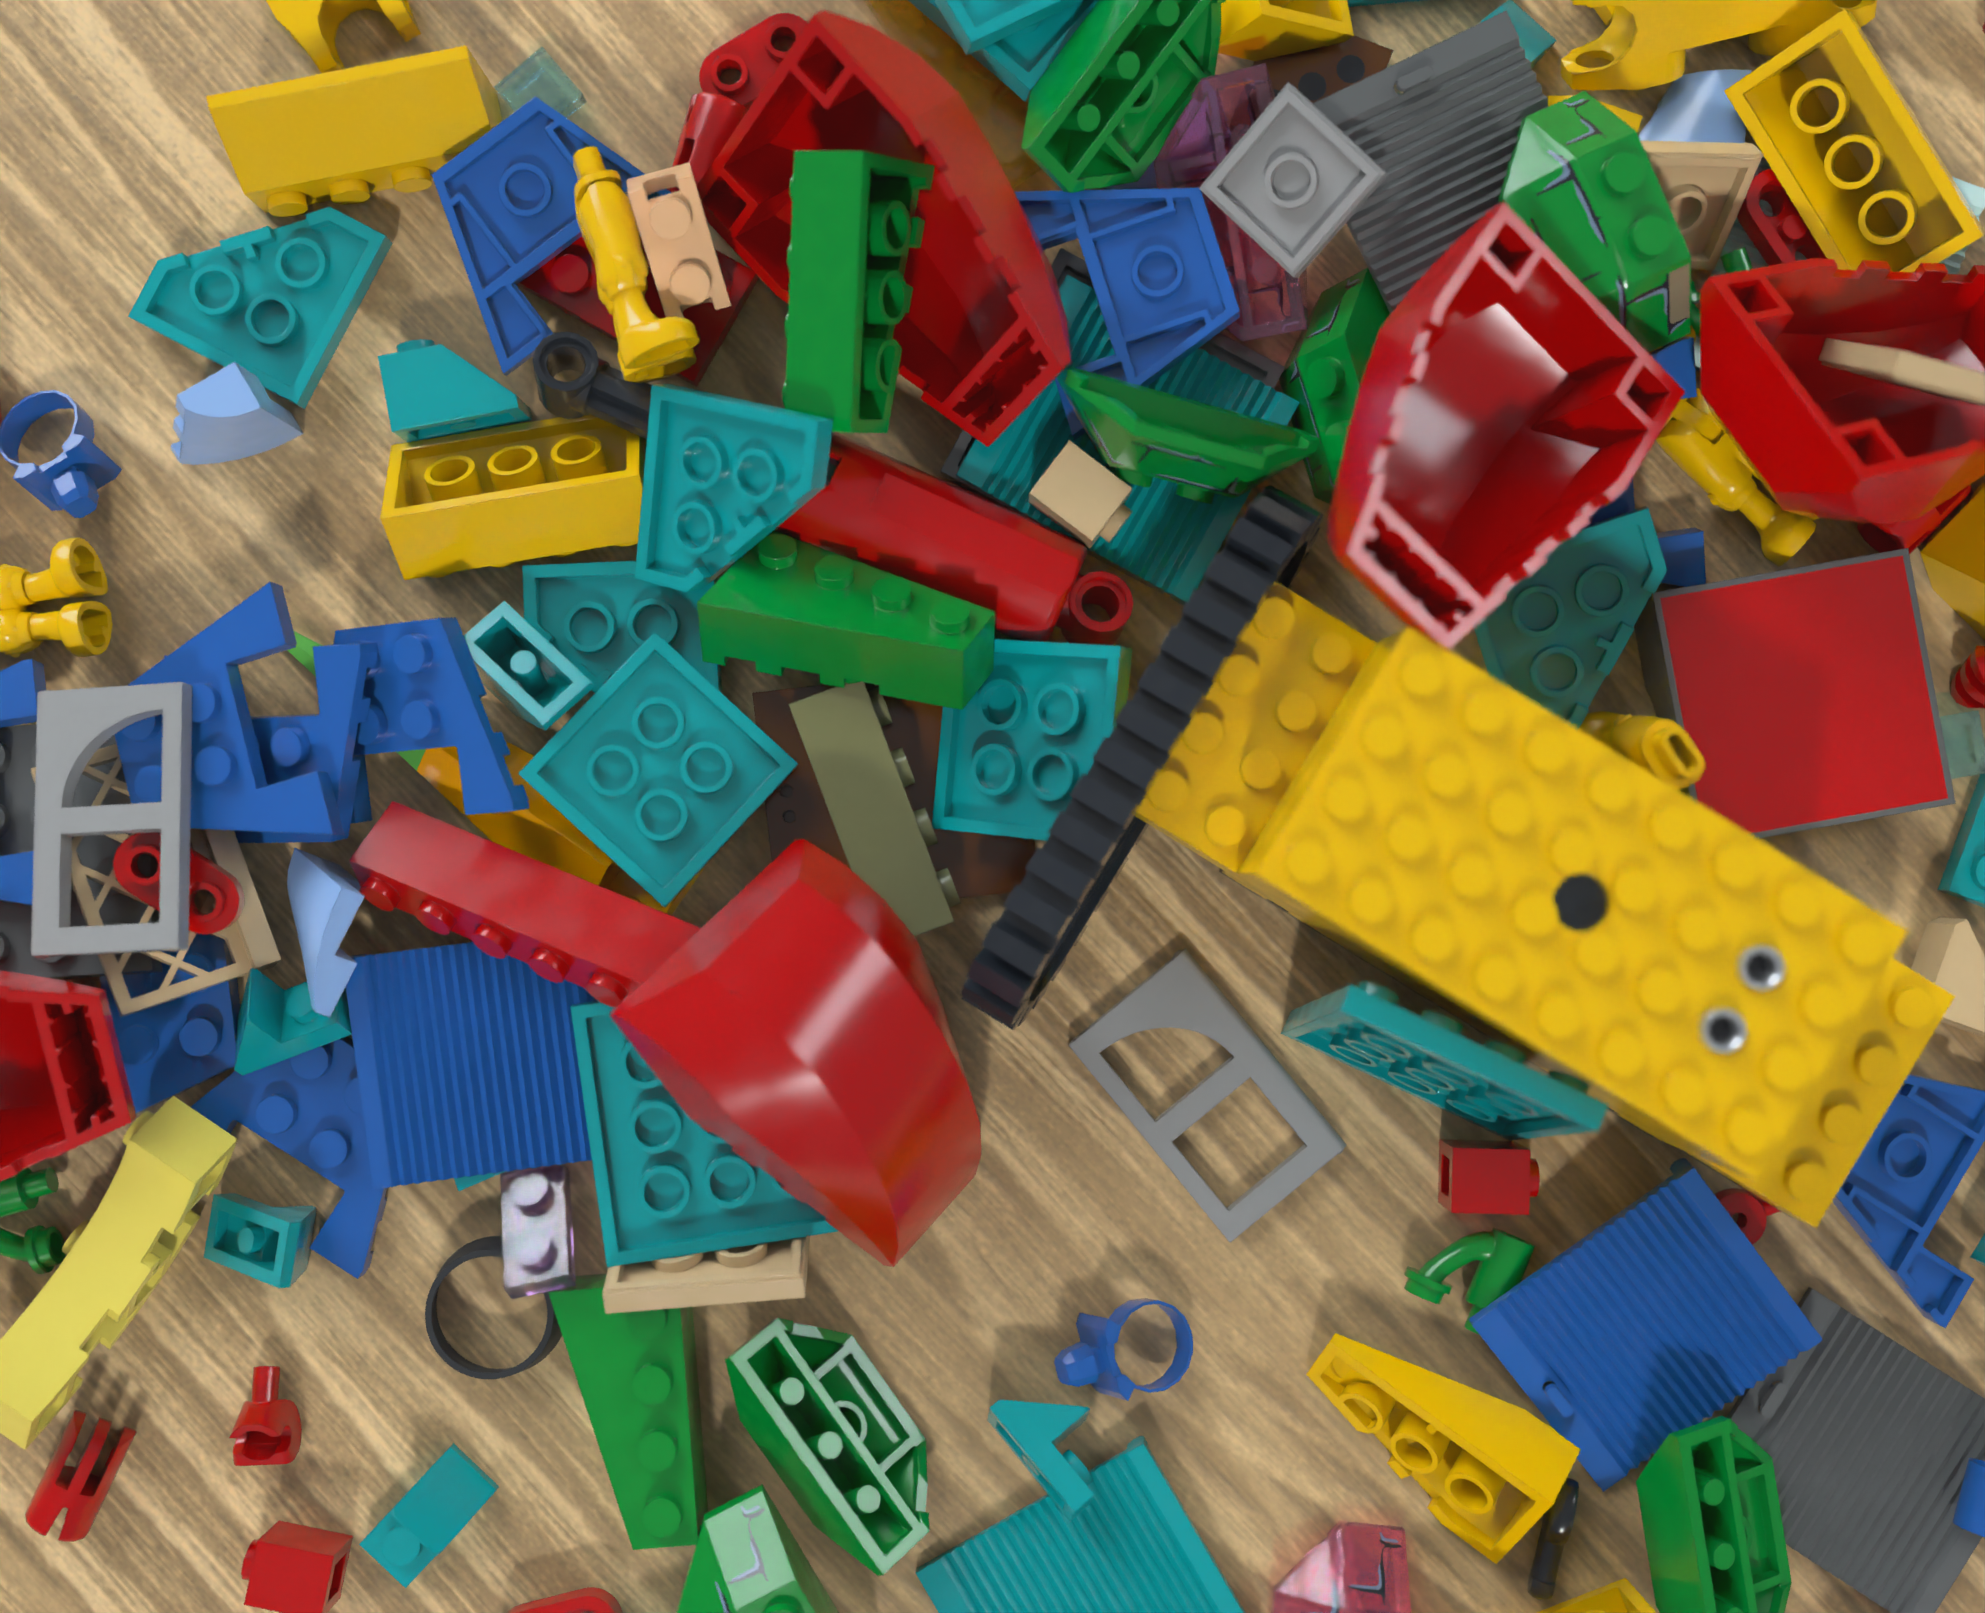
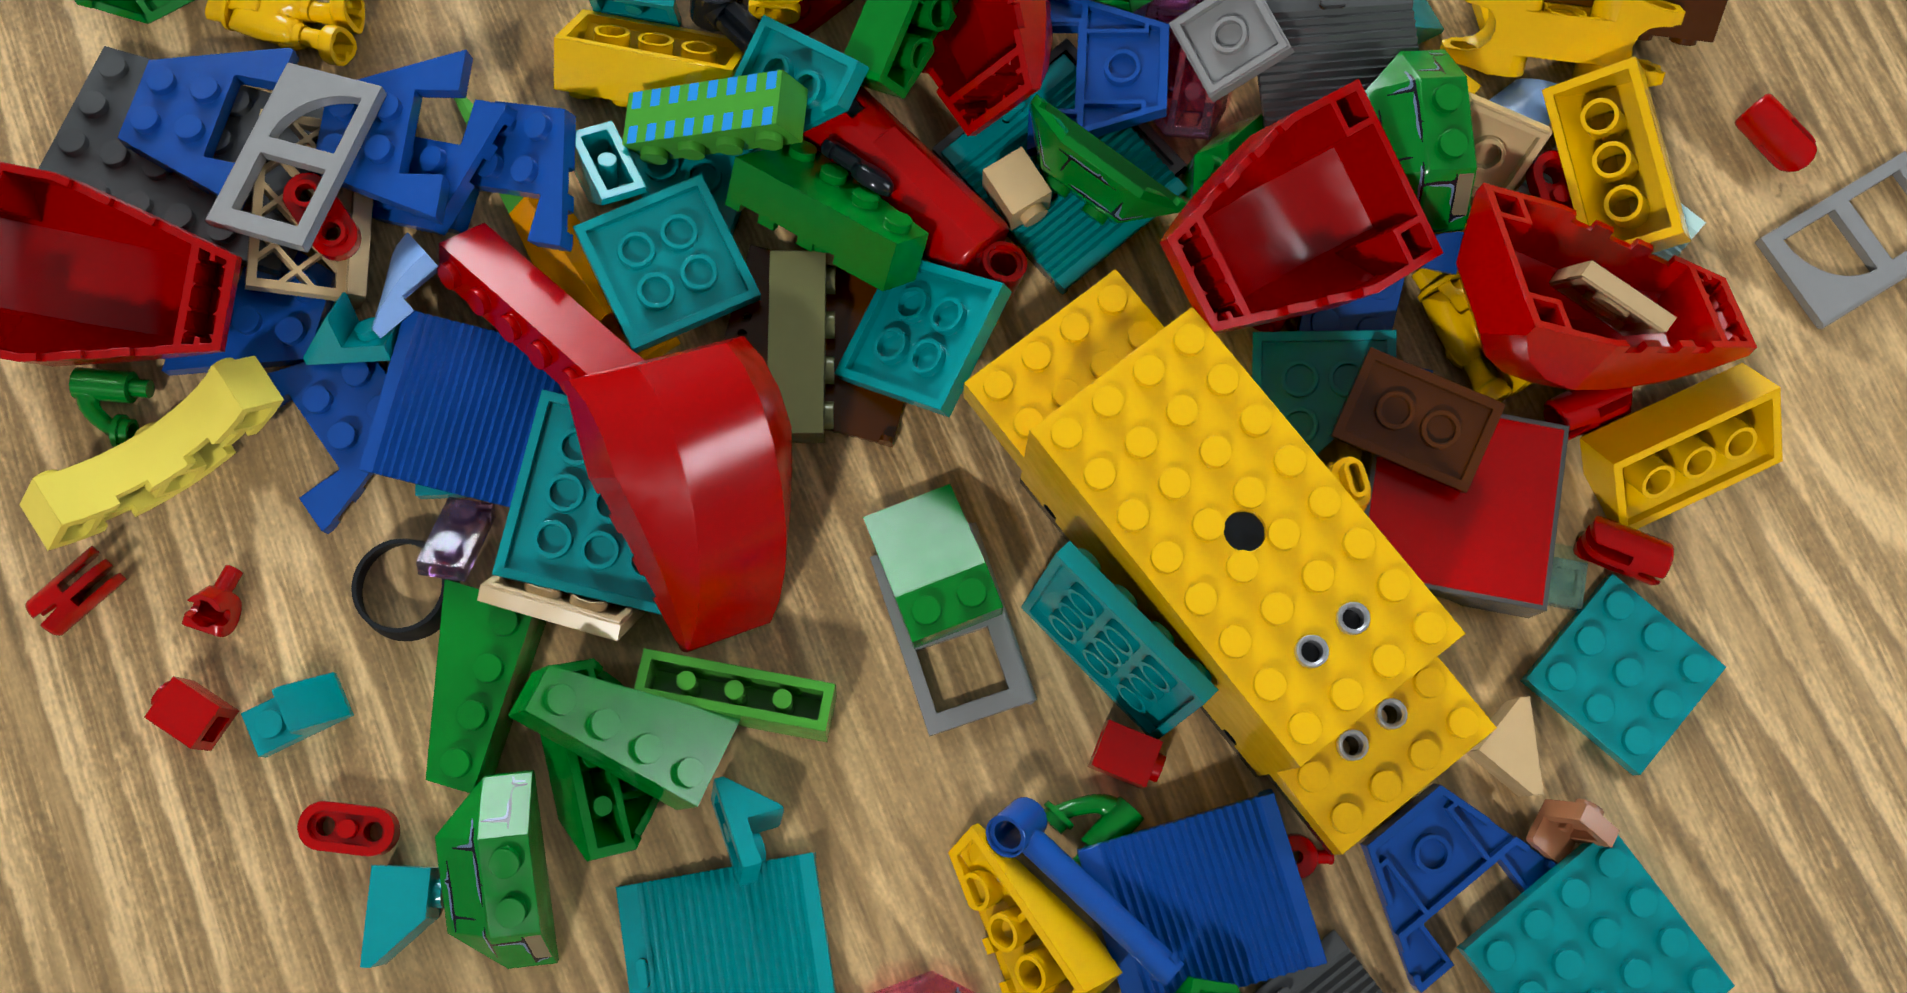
camera: 20 degrees right, 10 degrees down
(260, 1238) = (271, 477): teal slope -> none
(649, 556) = (716, 117): none -> bright green brick
(875, 556) = (861, 170): none -> black piece
(876, 1400) = (634, 735): none -> green wedge
(973, 1293) = (755, 696): none -> bright green brick
(1094, 1360) = (802, 780): blue piece -> none
(1099, 825) = (905, 432): black piece -> none
(1156, 1032) = (933, 566): none -> slope
(1390, 1329) = (1021, 830): none -> blue piece
(1716, 622) = (1417, 420): none -> reddish brown plate

